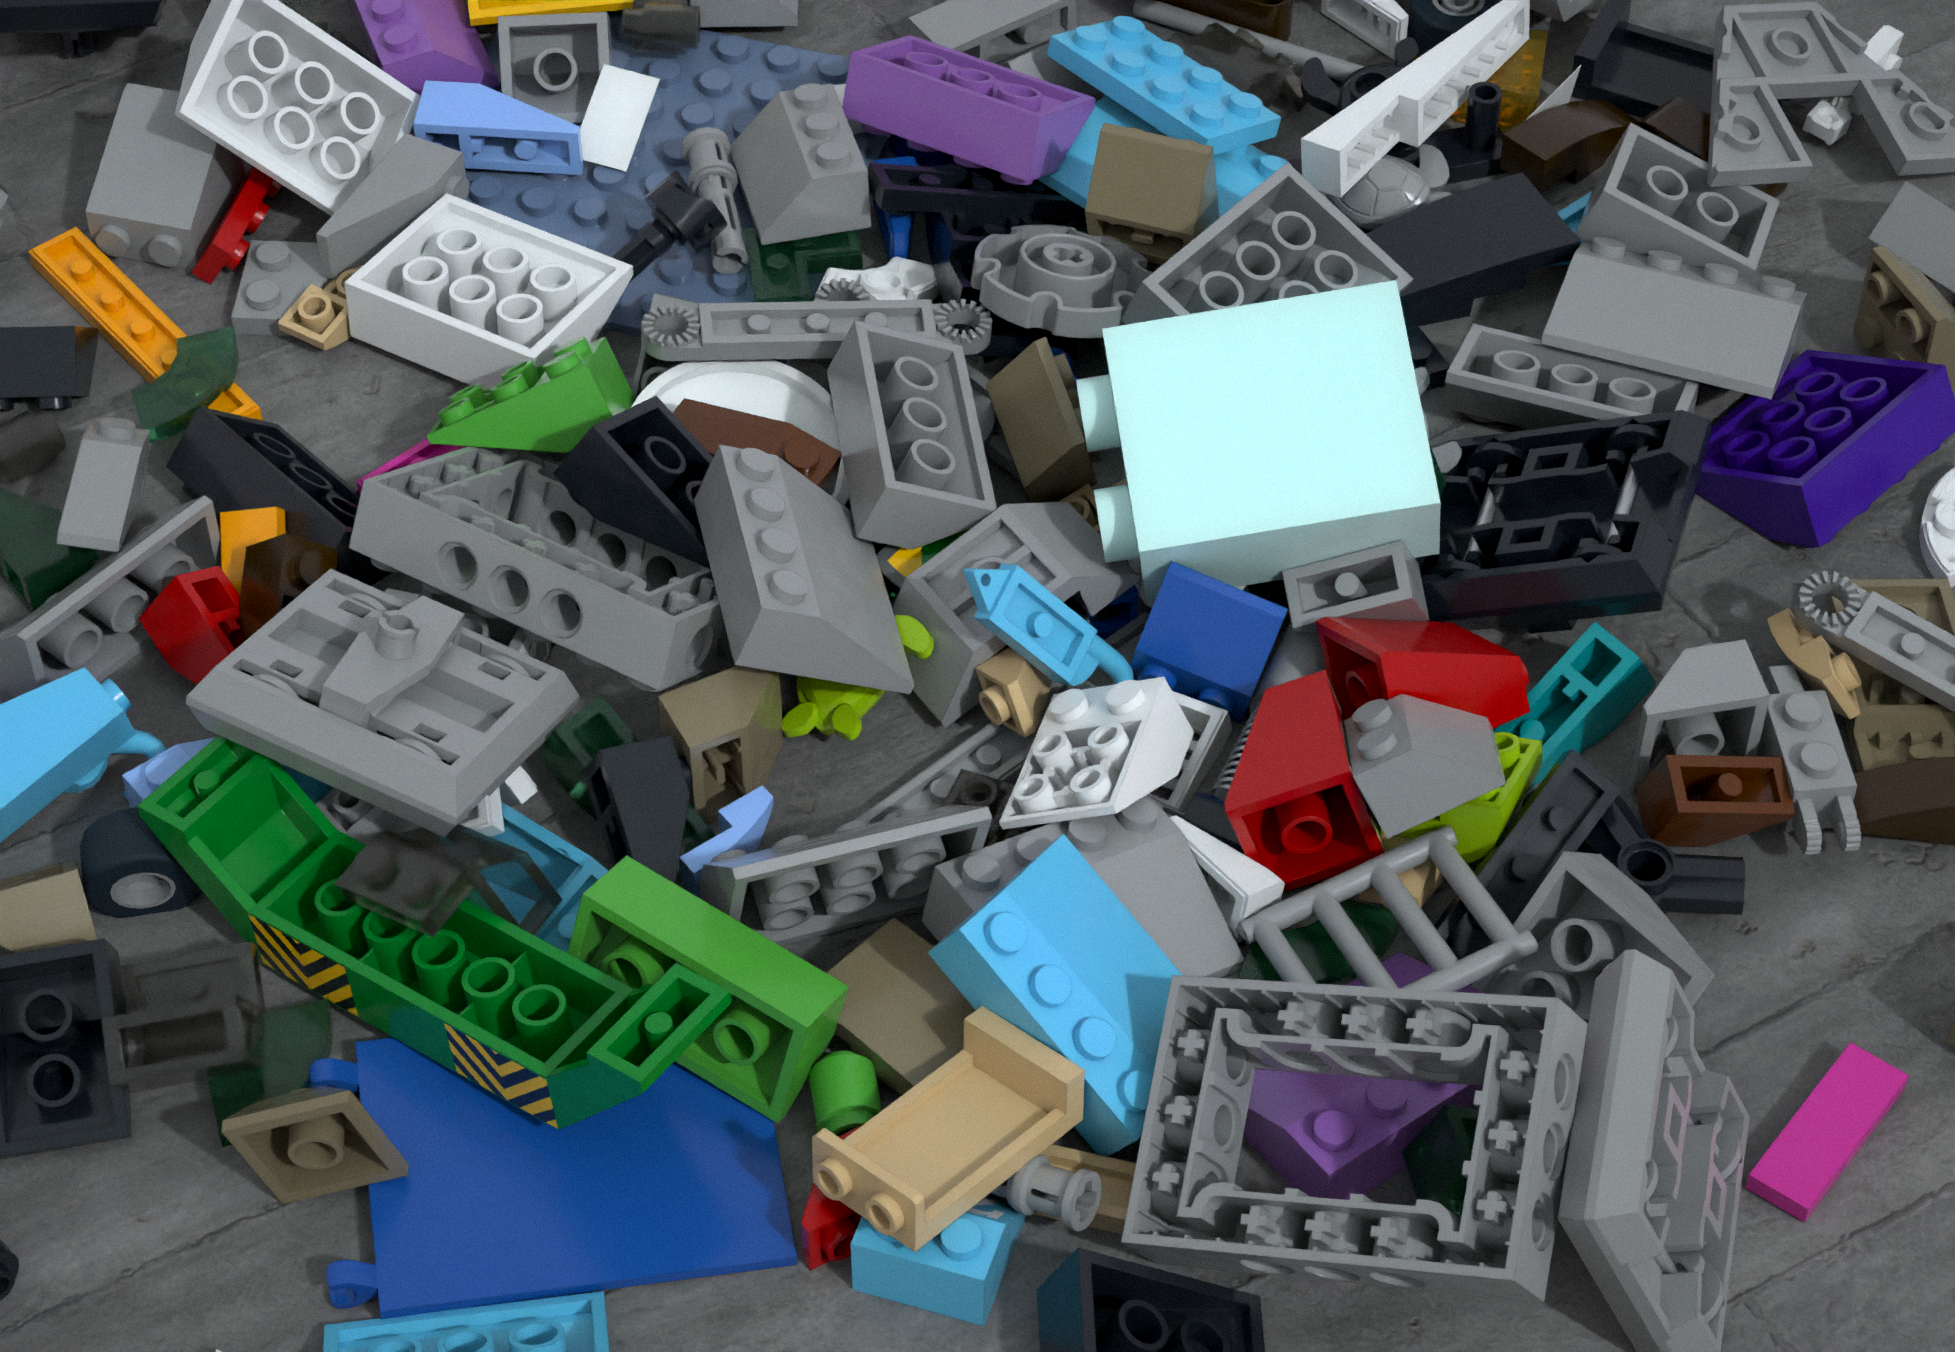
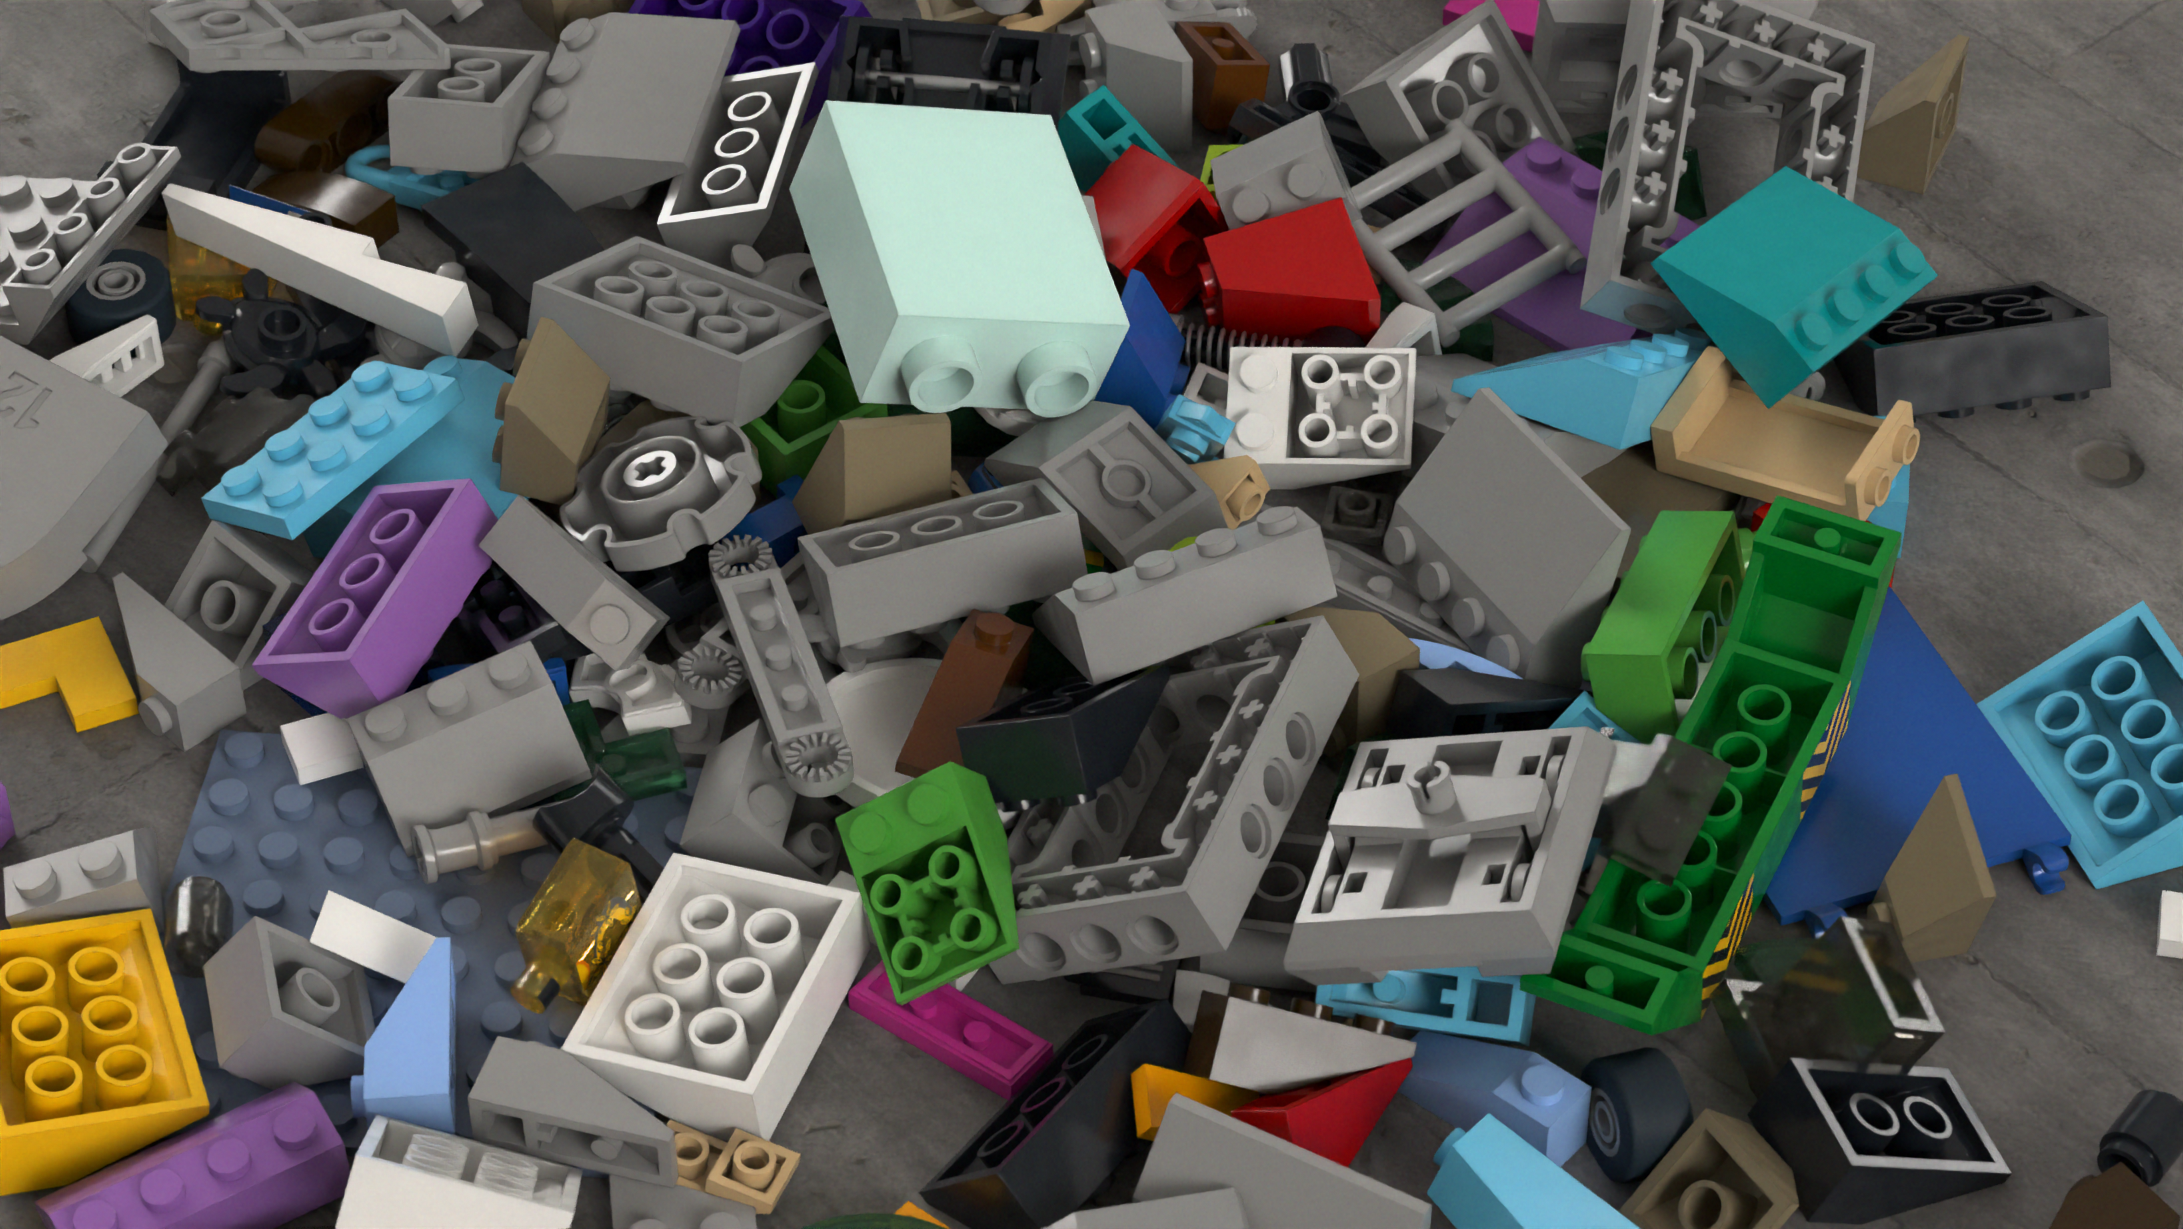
camera: 100 degrees left, 5 degrees down
(571, 201) = (574, 926): none -> clear yellow torso
(915, 220) = (573, 585): none -> light grey slope
(1147, 1141) = (1791, 279): none -> teal slope

